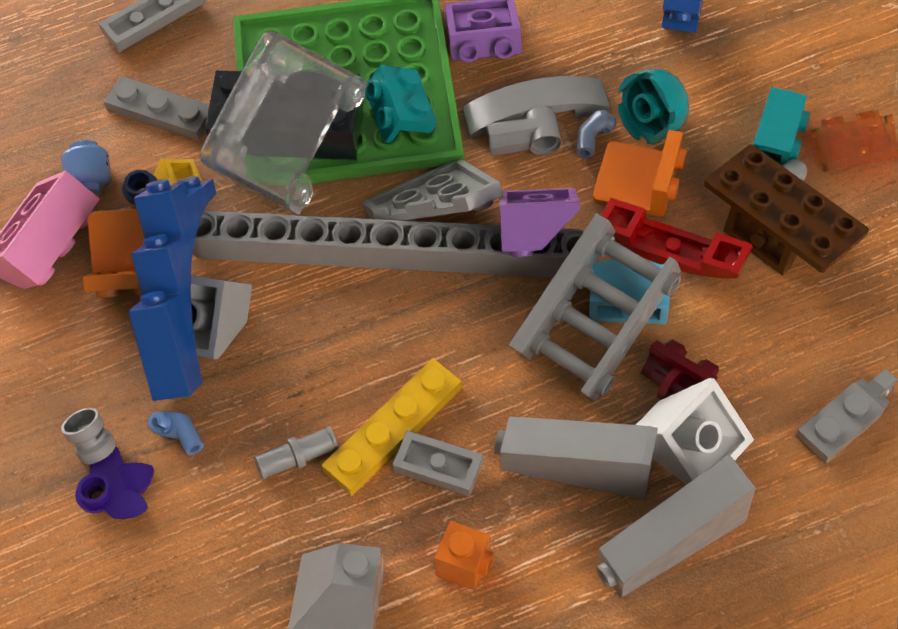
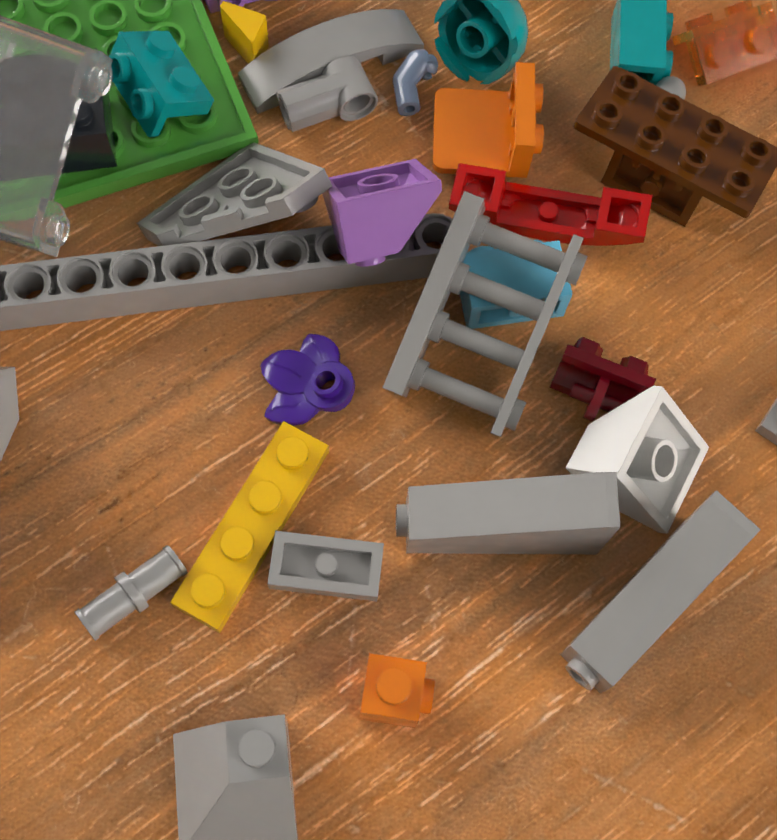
camera: 25 degrees left, 10 degrees up
(458, 334) = (300, 379): none -> dark purple plate
(474, 77) = (245, 30): none -> yellow slope

